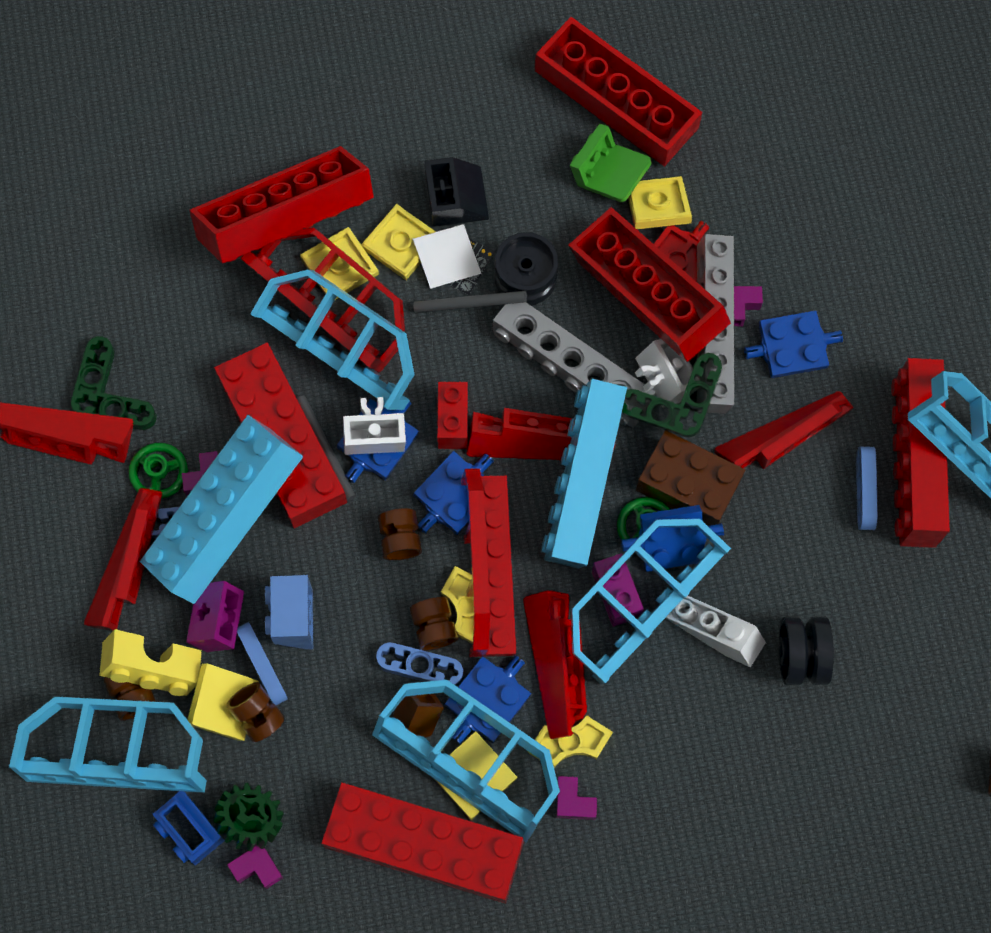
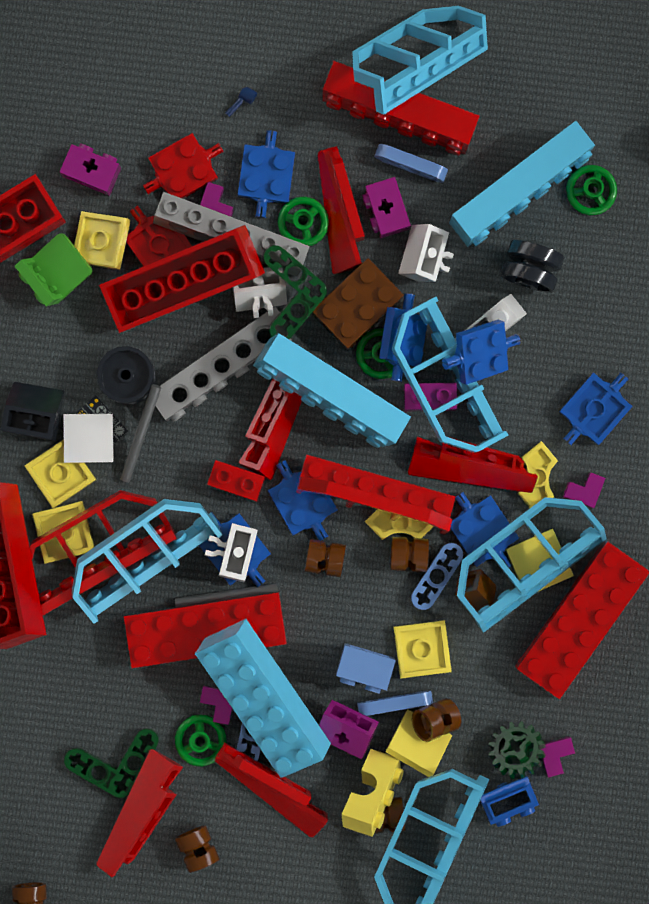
camera: 70 degrees left, 15 degrees up
(44, 492) = (193, 840): none -> reddish brown wheel
(332, 676) = (422, 649): none -> light yellow tile
(671, 781) = (595, 409): none -> blue plate
(688, 621) = (481, 352): none -> blue plate
(726, 156) = (100, 180): none -> magenta brick
(765, 391) = (316, 208): none -> green piece
(767, 260) = (183, 167): none -> red plate
(774, 532) = (424, 253): none -> white brick
(798, 491) = (388, 193): none -> magenta brick
(868, 296) = (247, 95): none -> dark blue hand
(893, 611) = (522, 183): none -> medium azure brick
(928, 696) = (594, 181): none -> green piece

